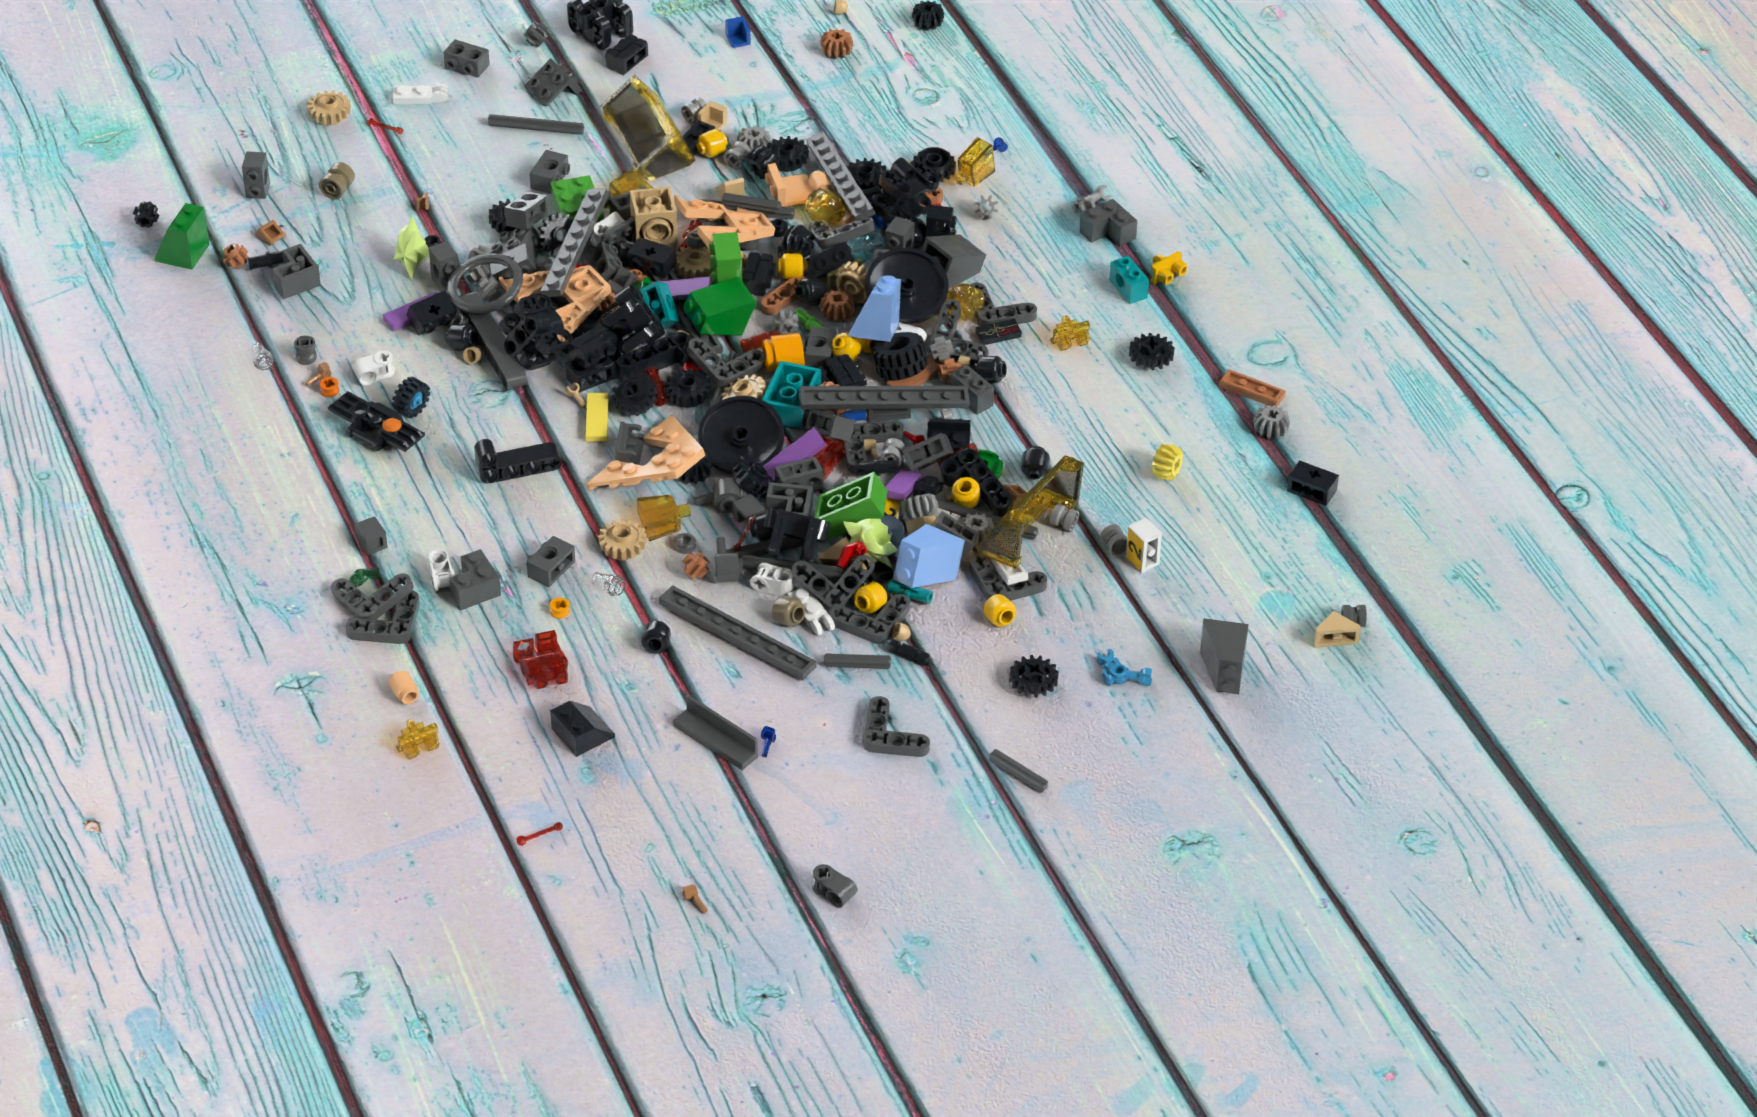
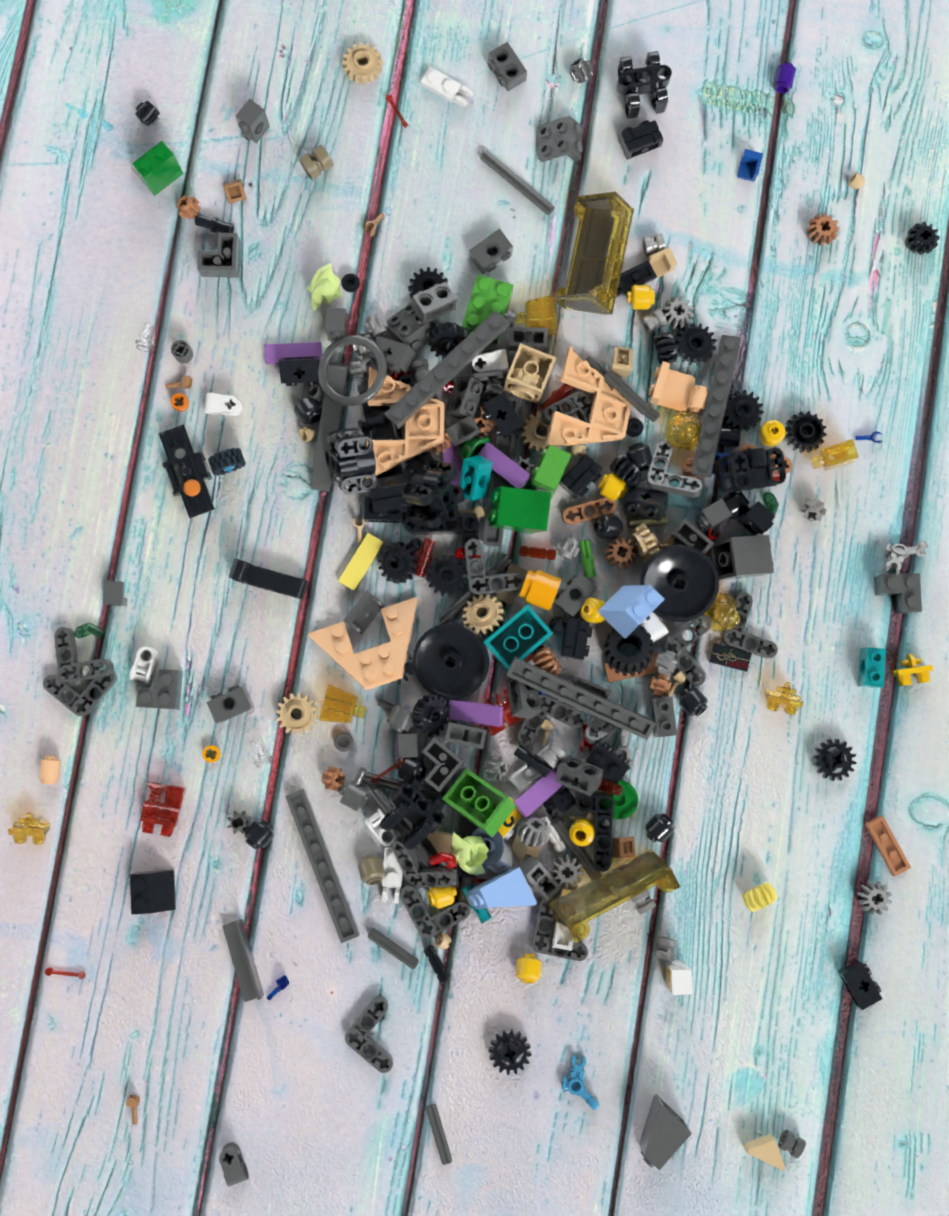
camera: 30 degrees right, 40 degrees up
(628, 637) = (237, 816): none -> dark grey gear
(918, 425) = (602, 734): none -> dark grey beam

